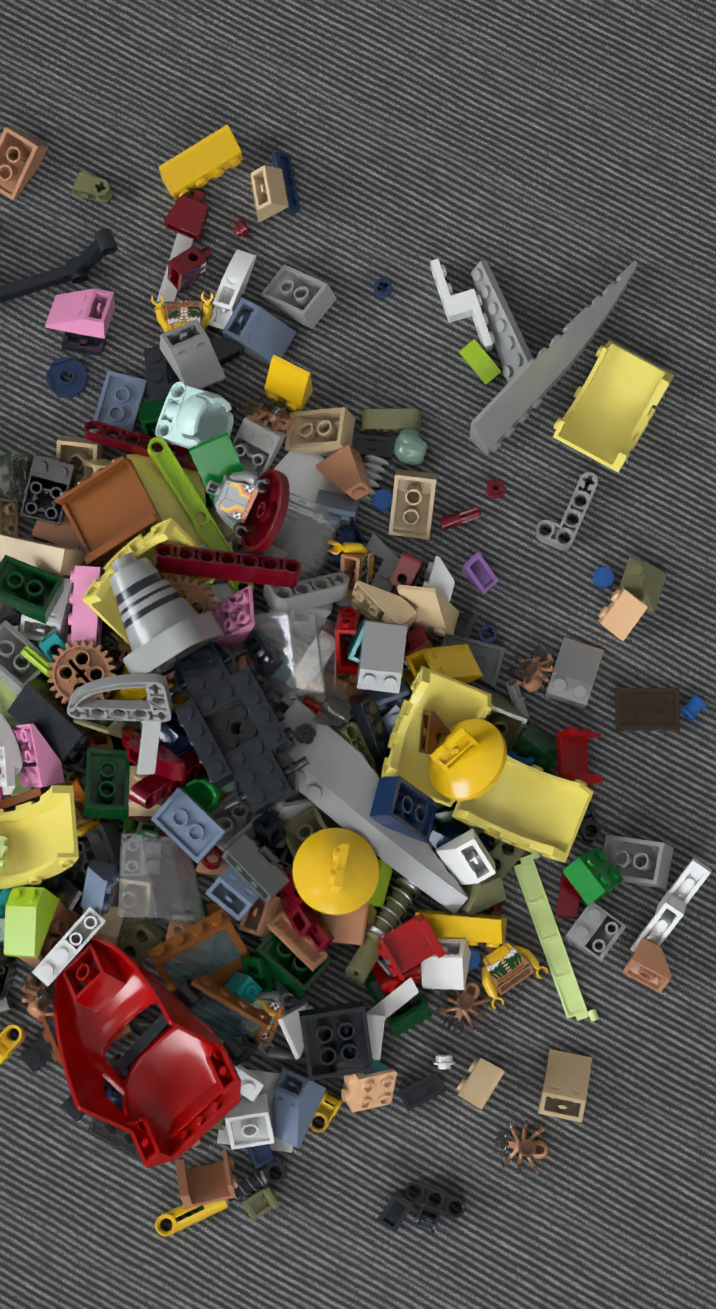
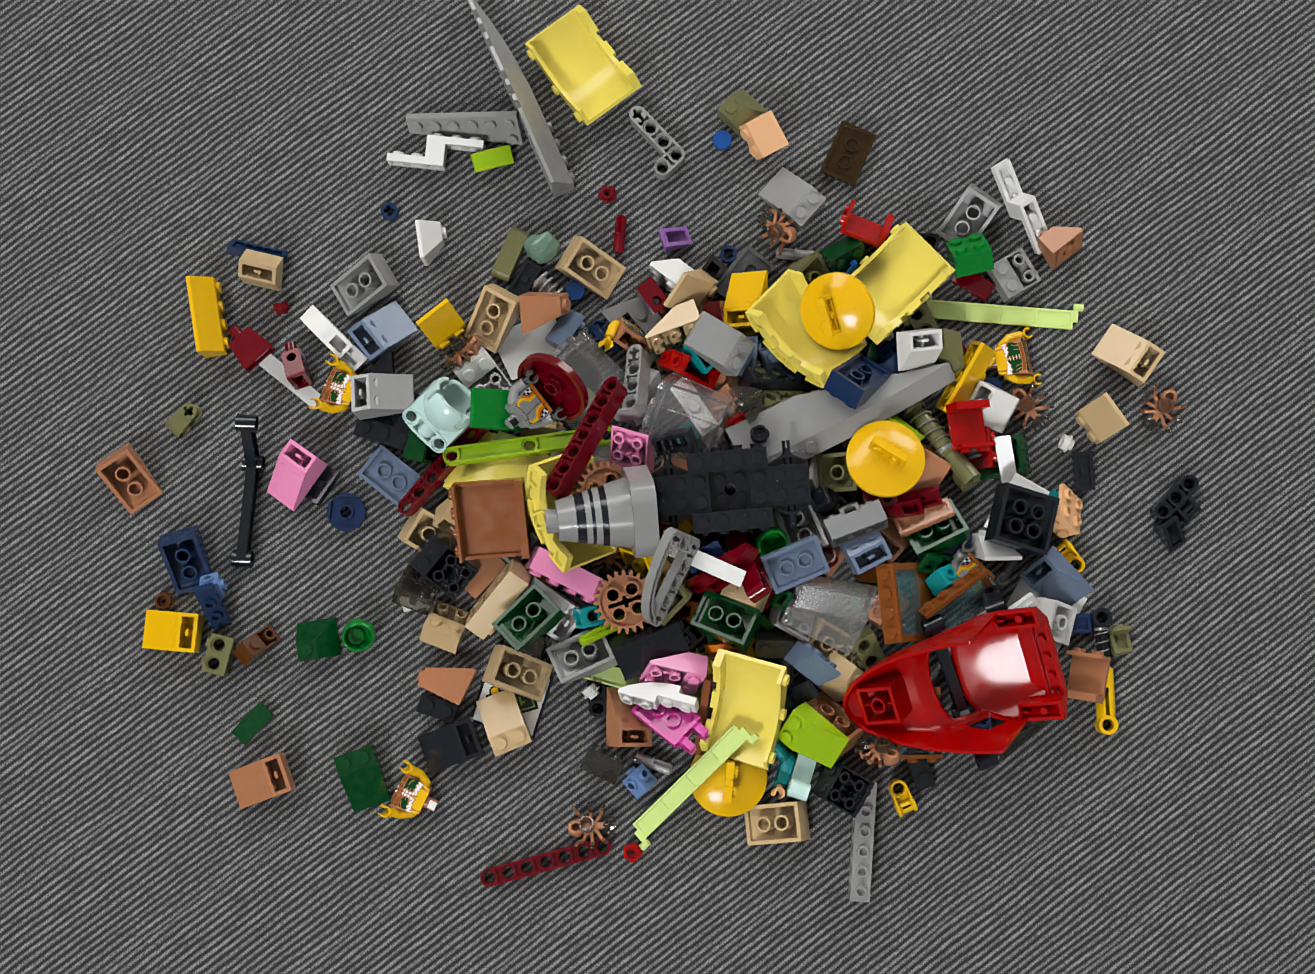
camera: 70 degrees left, 5 degrees up
(68, 946) = (851, 708): white slope -> none
(369, 336) = (430, 239): none -> white slope
(430, 726) = (796, 331): reddish brown slope -> none
(693, 707) = (863, 116): blue bush -> none

